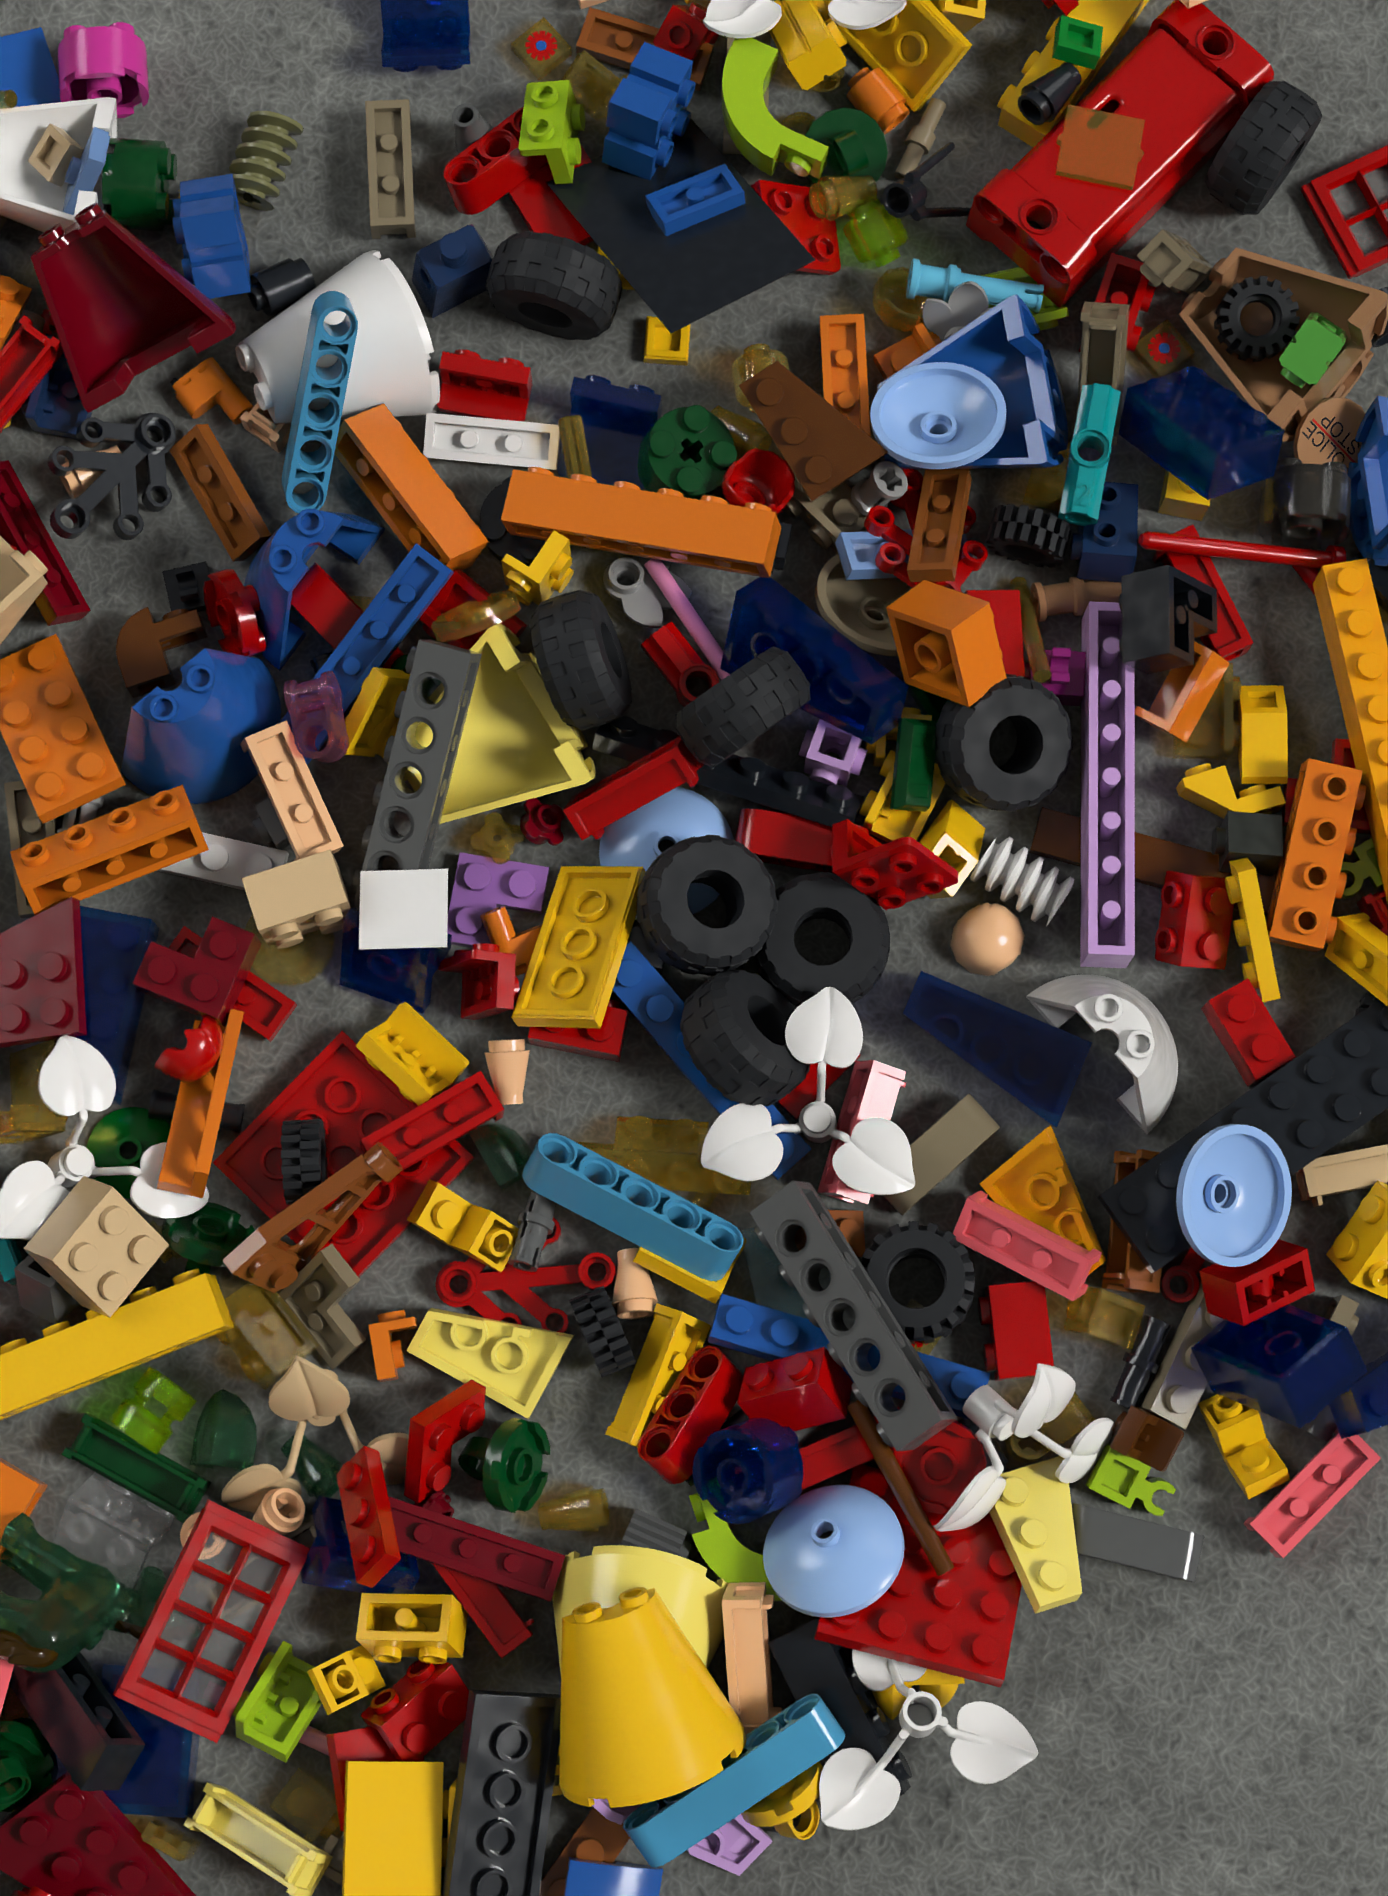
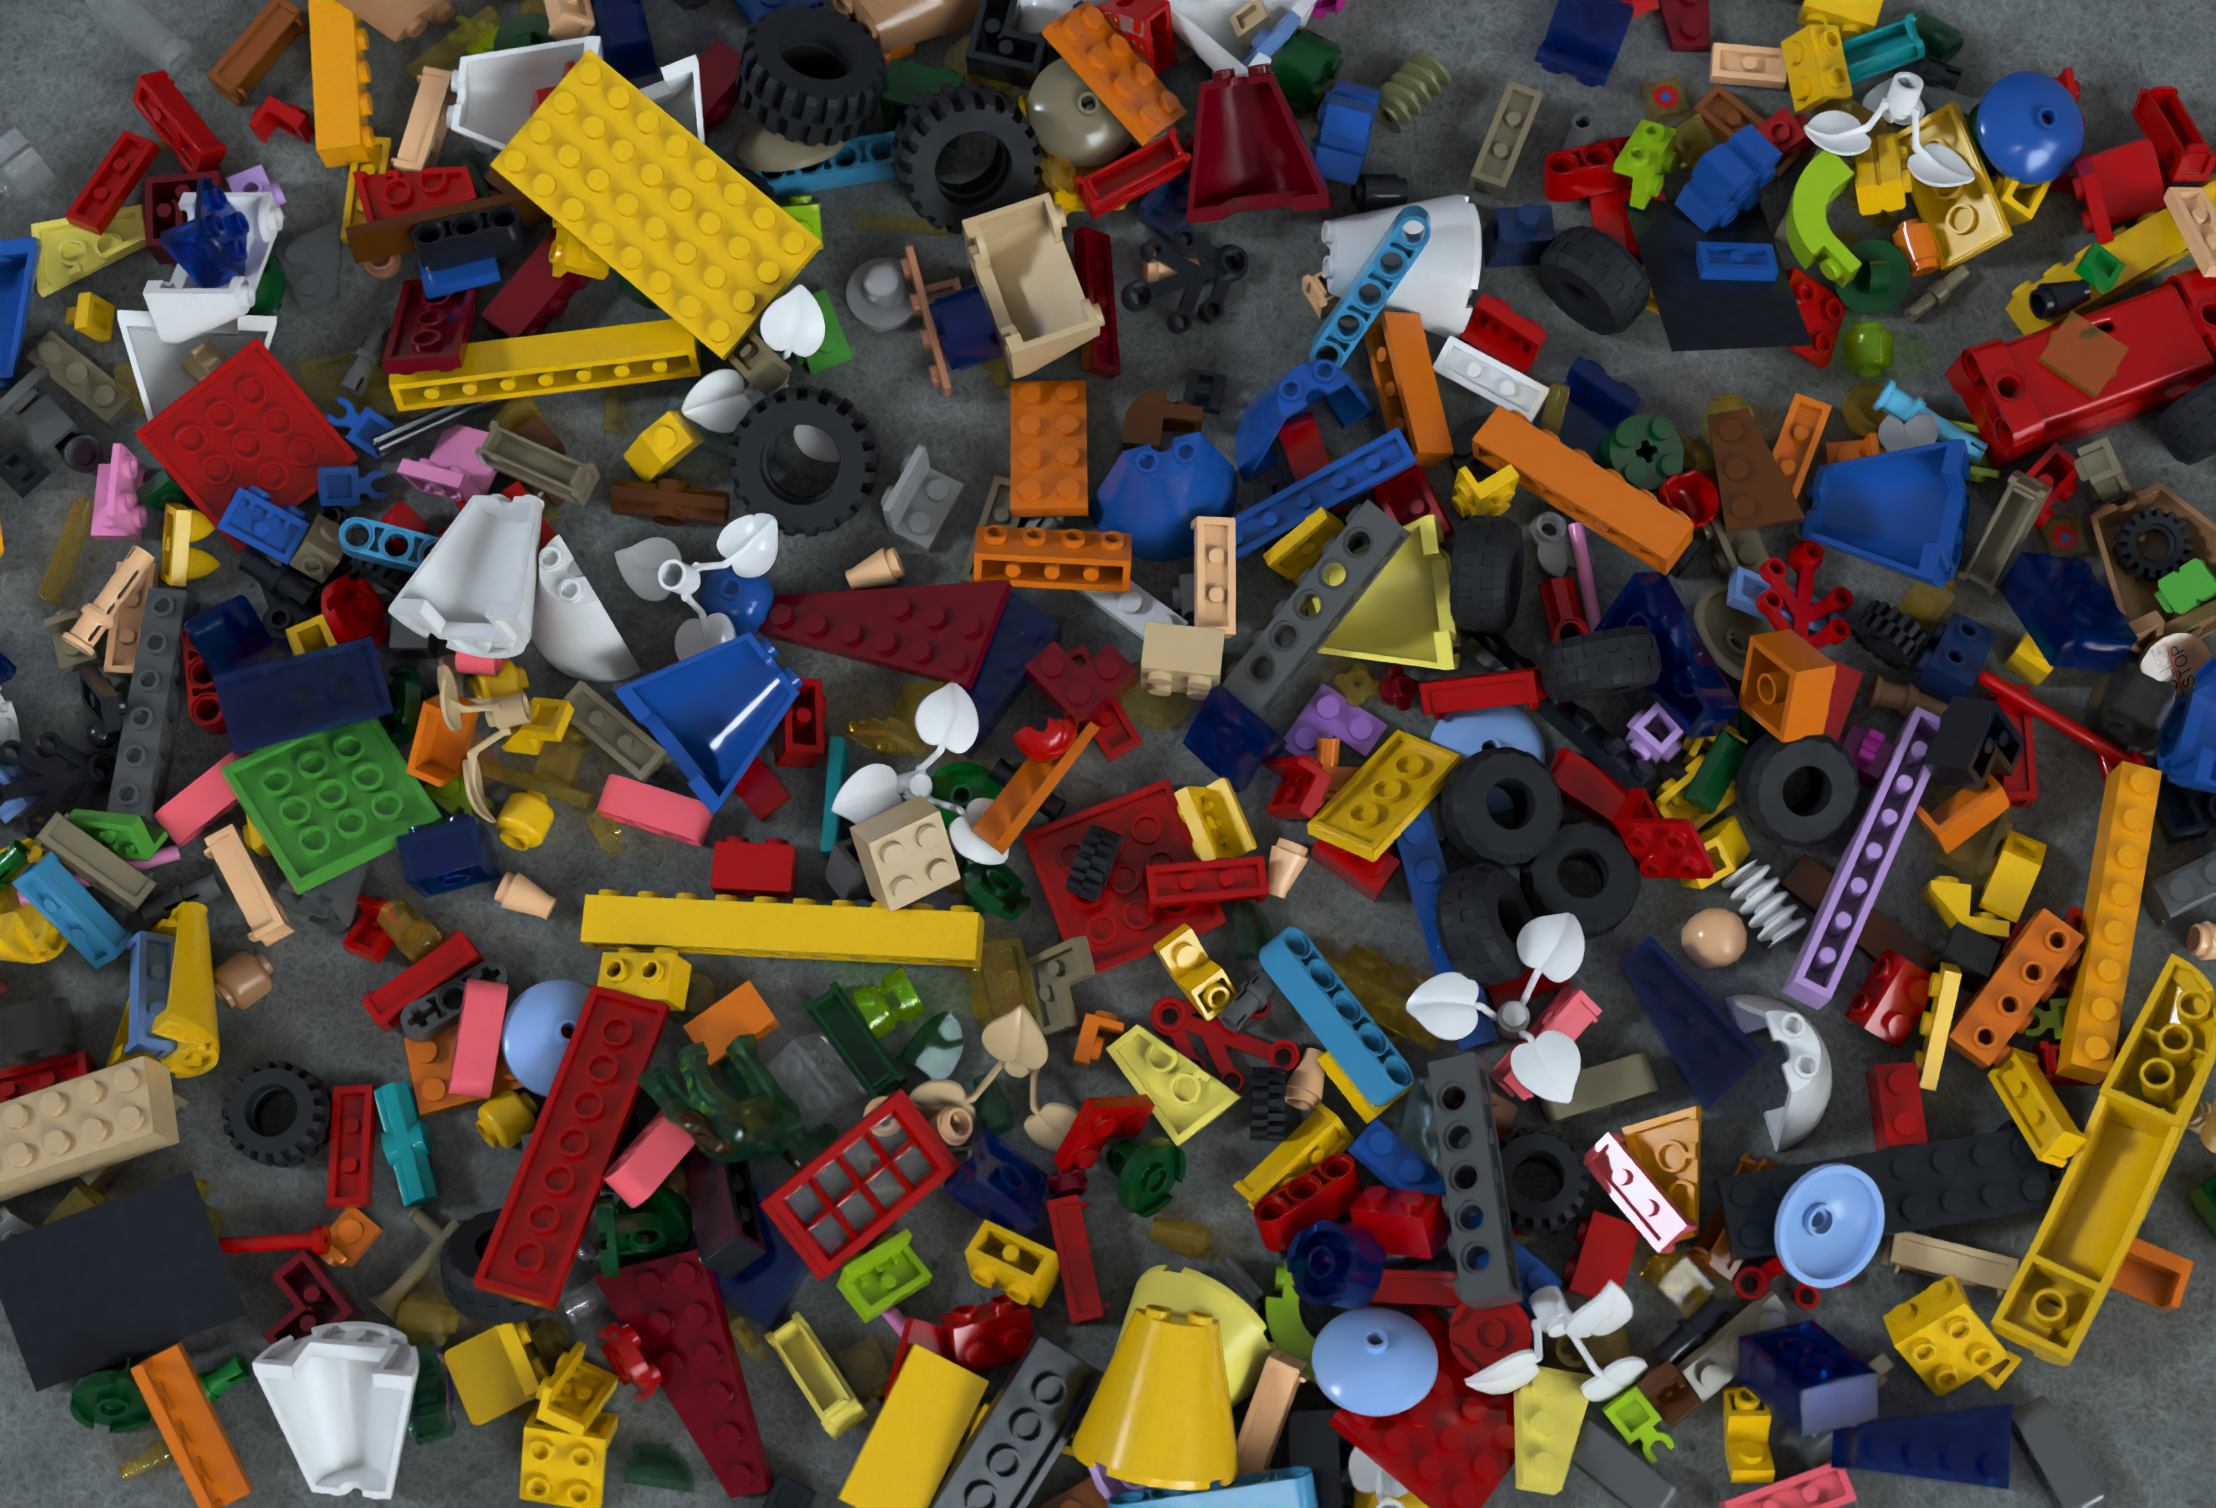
camera: 30 degrees right, 5 degrees down
(208, 386) = (1286, 245): orange piece -> none
(220, 492) = (1261, 328): dark orange plate -> none
(234, 609) = (1231, 417): red plate -> none
(275, 1264) = (1035, 932): dark orange plate -> none
(317, 707) = (1260, 519): clear pink piece -> none
(346, 1679) = (942, 1280): yellow slope -> none
(368, 1517) = (1018, 1159): red plate -> none
(403, 909) = (1260, 702): white sticker -> none
(475, 616) = (1419, 503): clear yellow tile -> none
(476, 1550) = (1084, 1222): dark red plate -> none
(663, 346) = (1662, 363): yellow tile -> none
(840, 195) = (1854, 307): clear yellow cone -> none
(884, 484) = (1786, 548): light grey bush -> none
(901, 1488) = (1451, 1336): reddish brown bar -> none
(909, 193) = (1910, 329): black plant -> none
(938, 415) = (1858, 507): light blue dish -> none
(939, 525) = (1821, 594): dark orange plate -> none
(1031, 632) = (1858, 712): clear yellow bar -> none
(1085, 478) = (1957, 607): teal piece -> none
(1260, 1287) = (1816, 1311): red brick -> none

